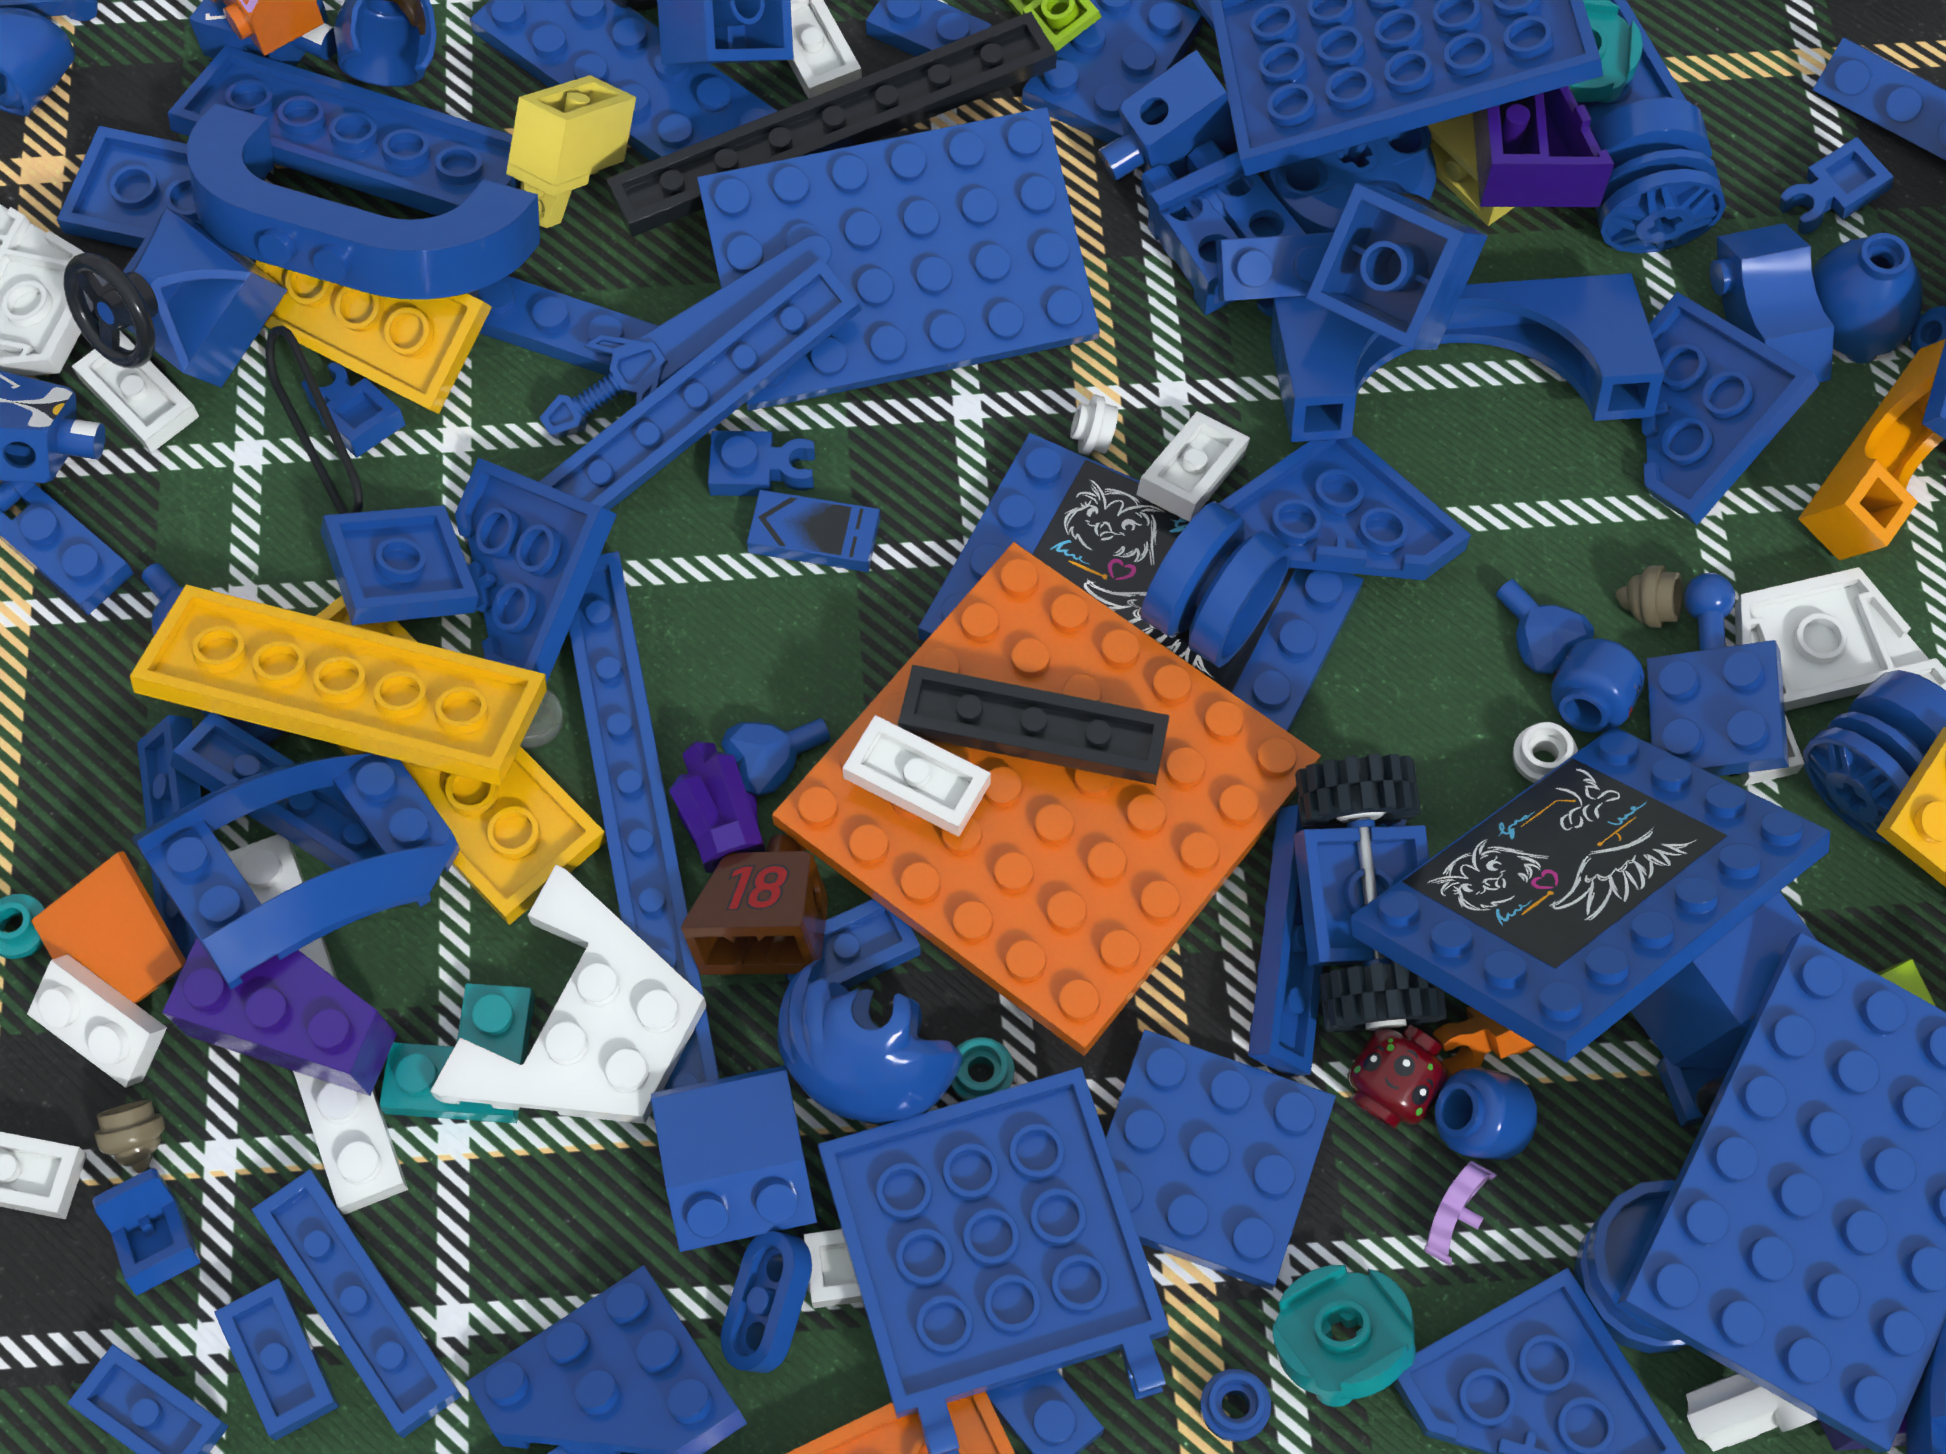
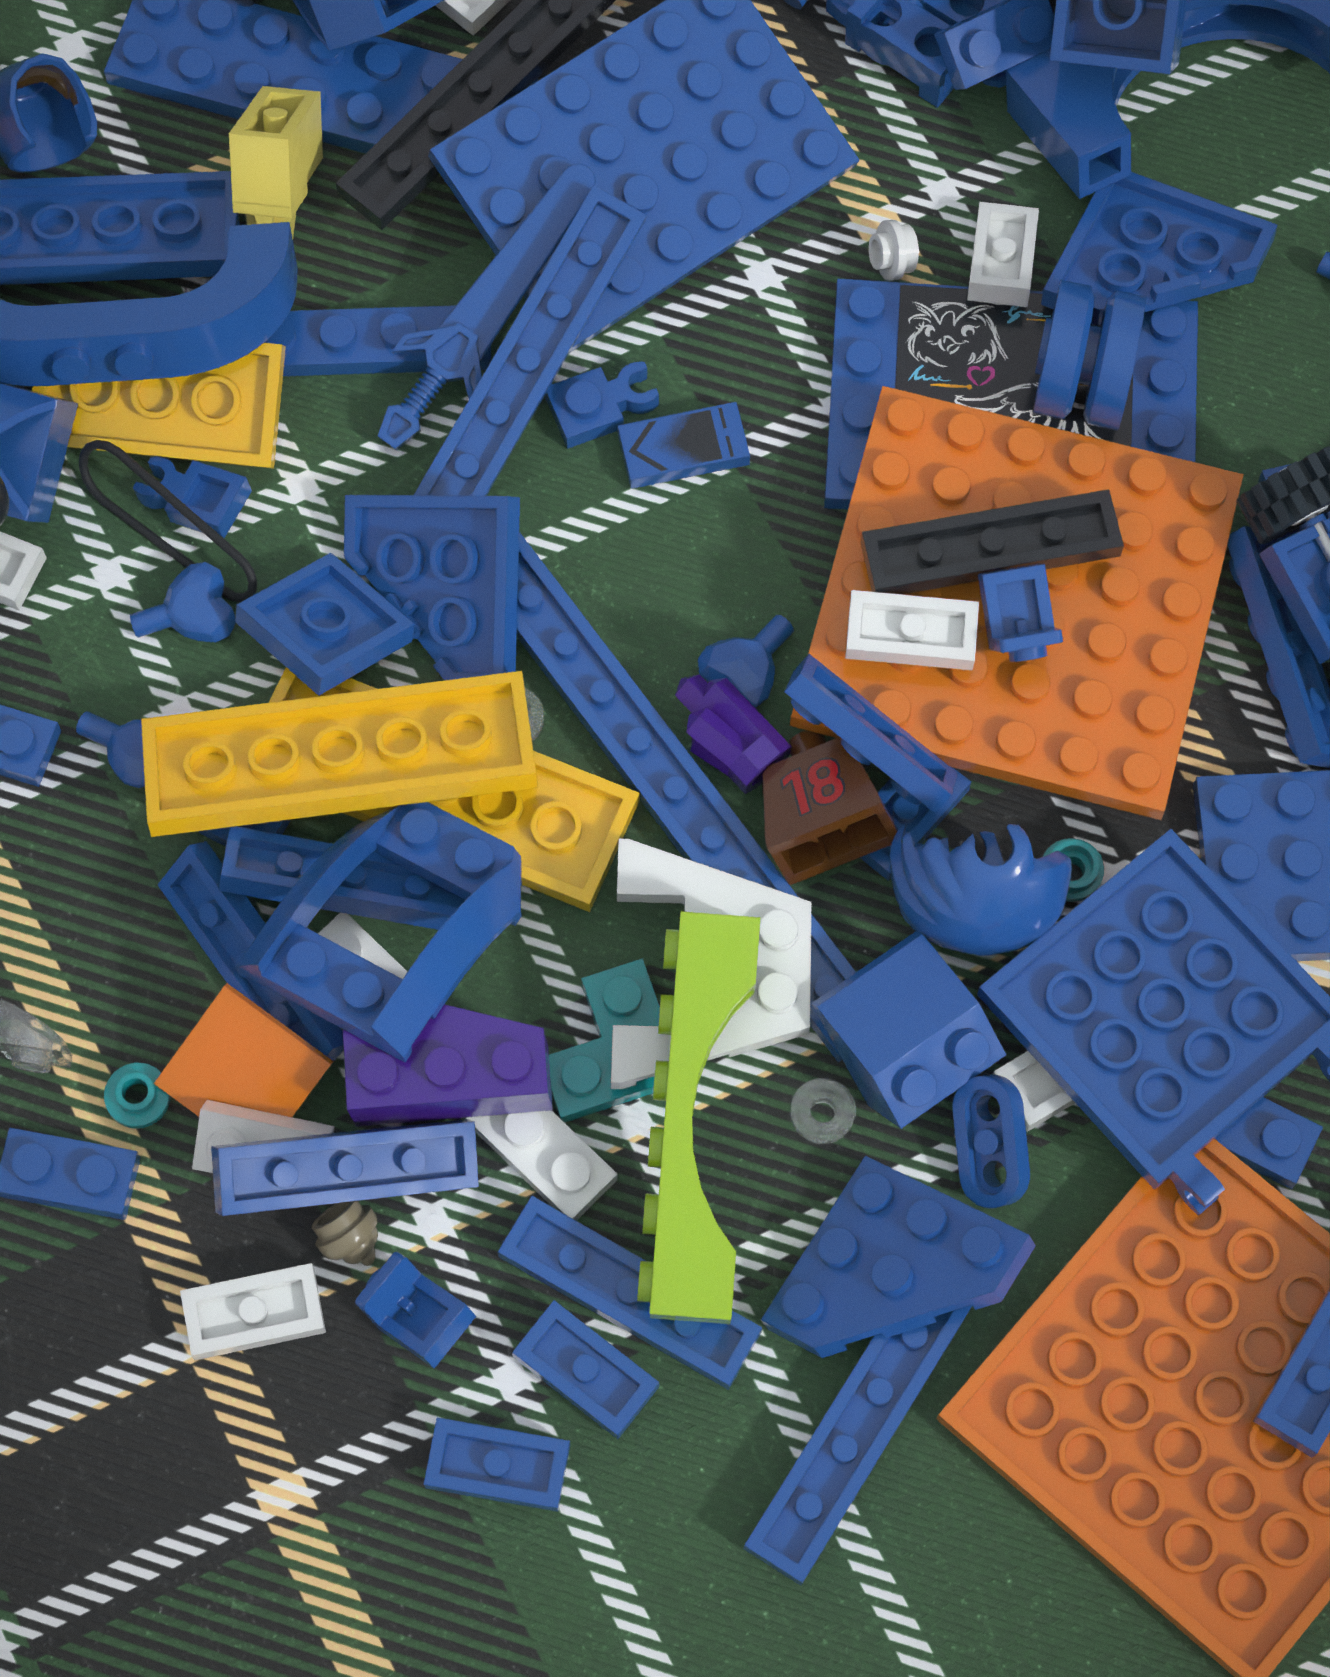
camera: 25 degrees left, 5 degrees up
(146, 1068) = (344, 1167): none -> plate
(296, 505) = (190, 607): none -> blue rock
(414, 1286) = (713, 980): none -> lime arch
(615, 1188) = (823, 1091): none -> clear plate
(829, 858) = (870, 734): none -> blue plate
(1025, 798) = (1018, 612): none -> blue bracket

